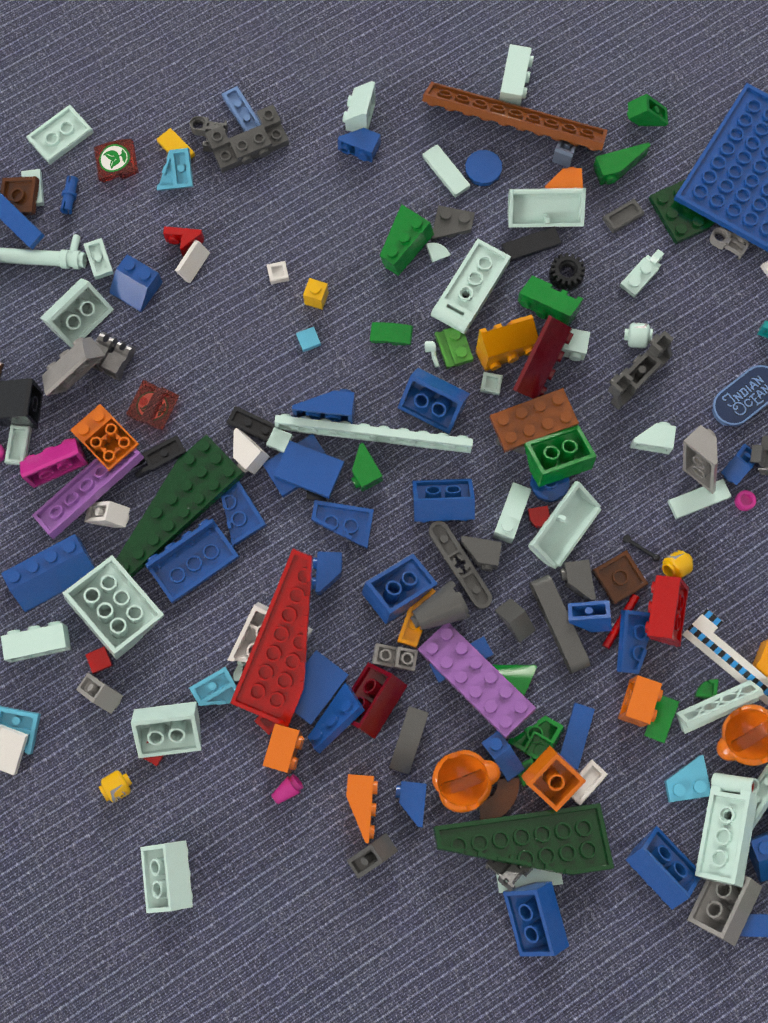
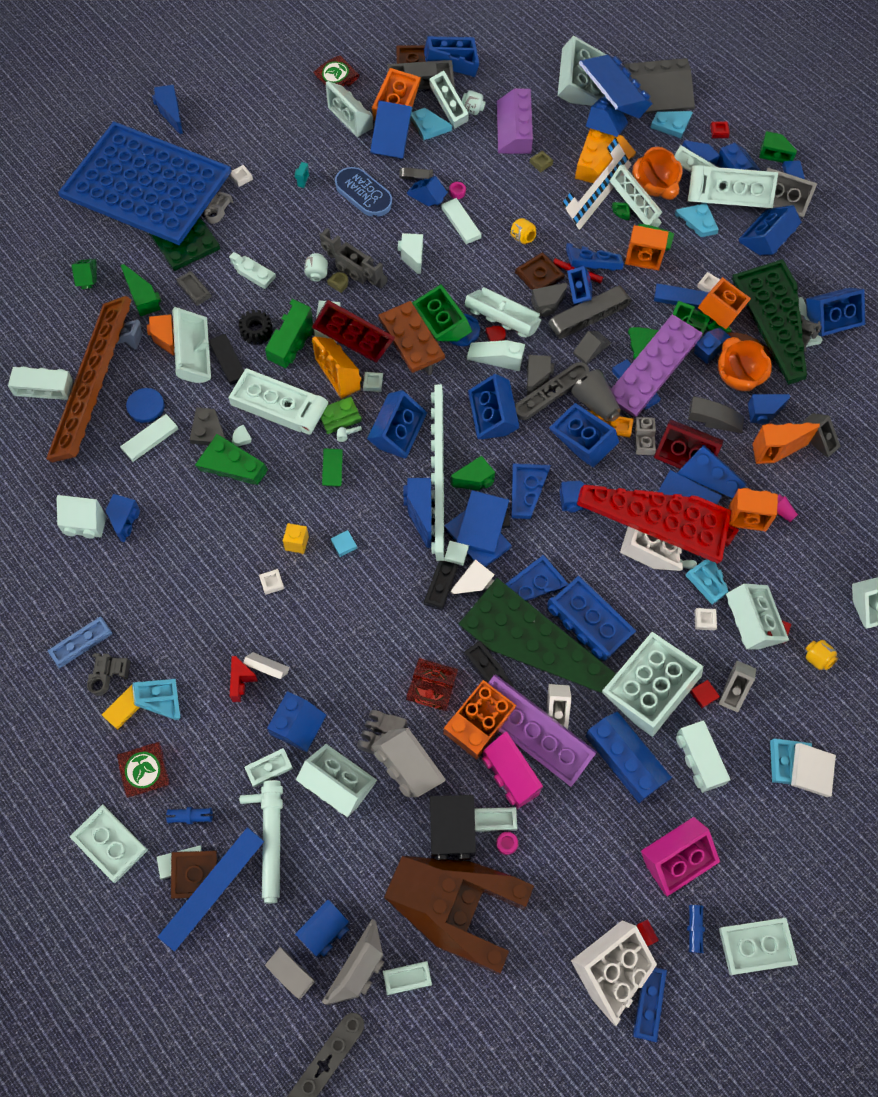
camera: 100 degrees left, 10 degrees down
(176, 678) = (705, 619): none -> white tile
(249, 144) = (121, 617): dark grey bracket -> none
(622, 359) = (338, 281): none -> olive tile
(627, 539) = (504, 270): black hinge -> none
(667, 610) = (566, 232): red slope -> none
(701, 457) = (433, 206): light grey slope -> none

